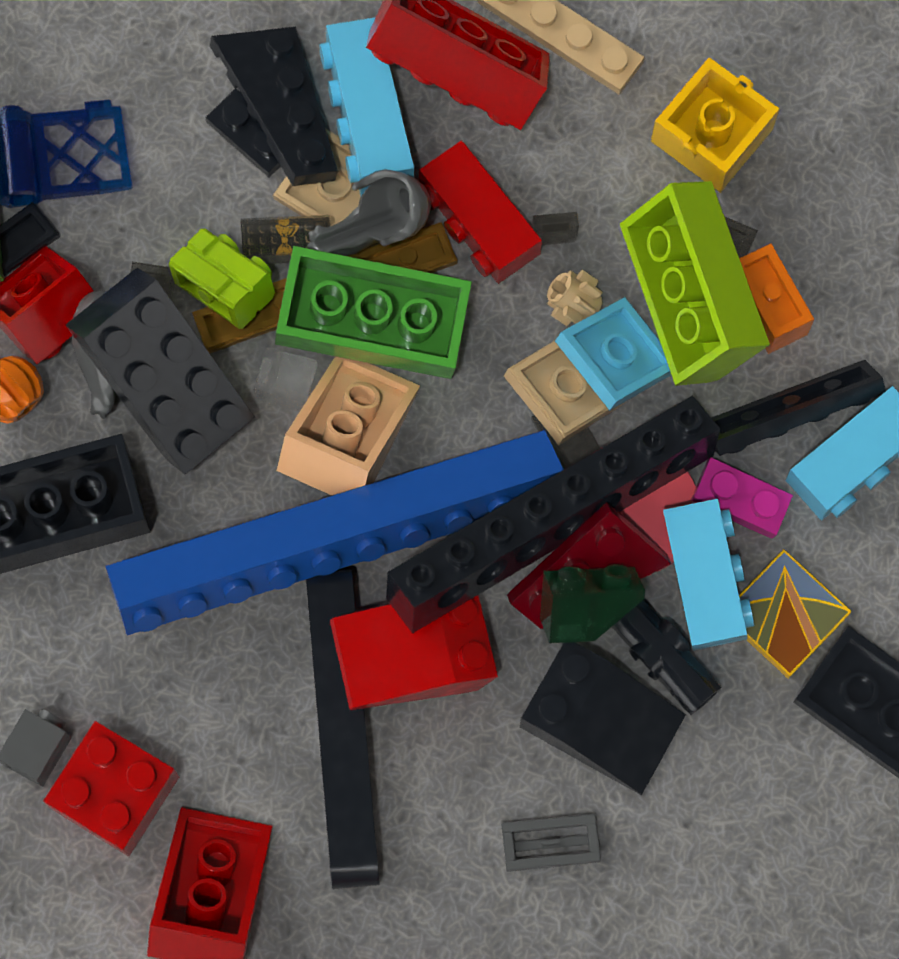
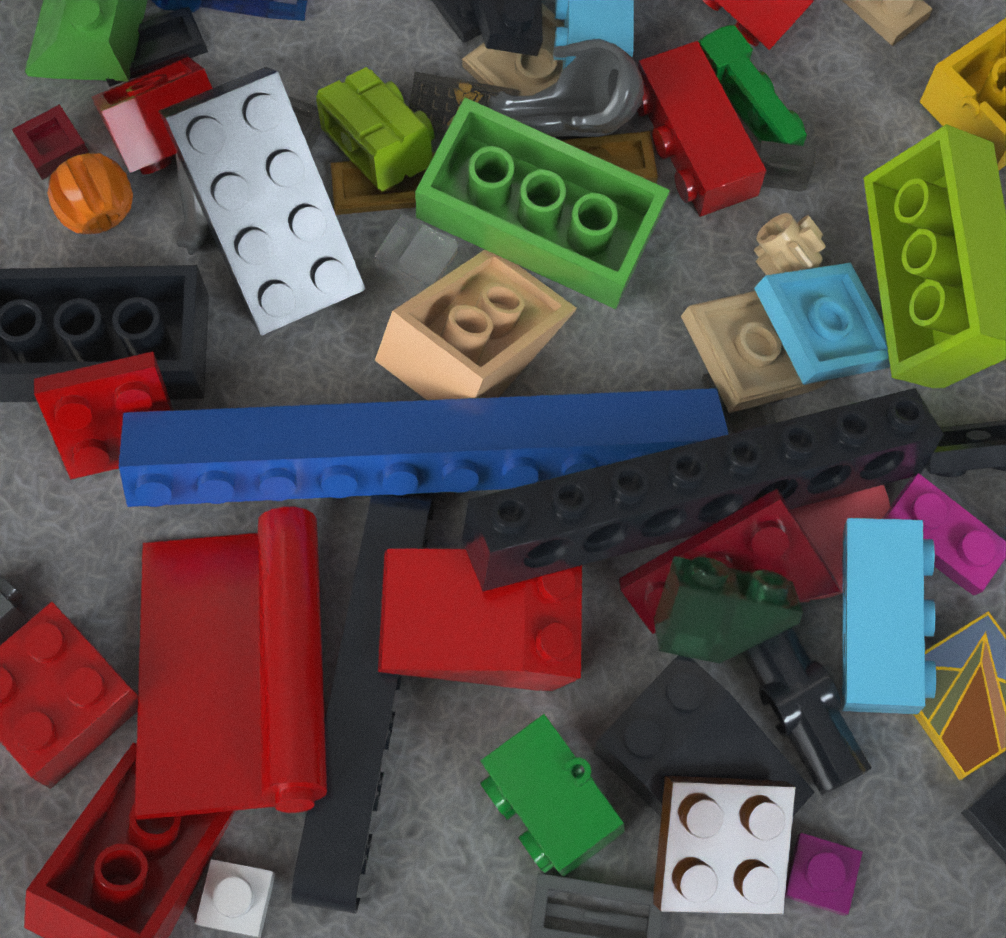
camera: 15 degrees right, 5 degrees down
(77, 567) = (88, 407): none -> red plate
(239, 733) = (231, 672): none -> red door
(289, 897) = (235, 898): none -> white plate
(499, 767) = (556, 801): none -> green brick
(514, 169) = (750, 89): none -> green plate
(628, 769) = (723, 845): none -> plate
(703, 771) = (823, 874): none -> magenta plate

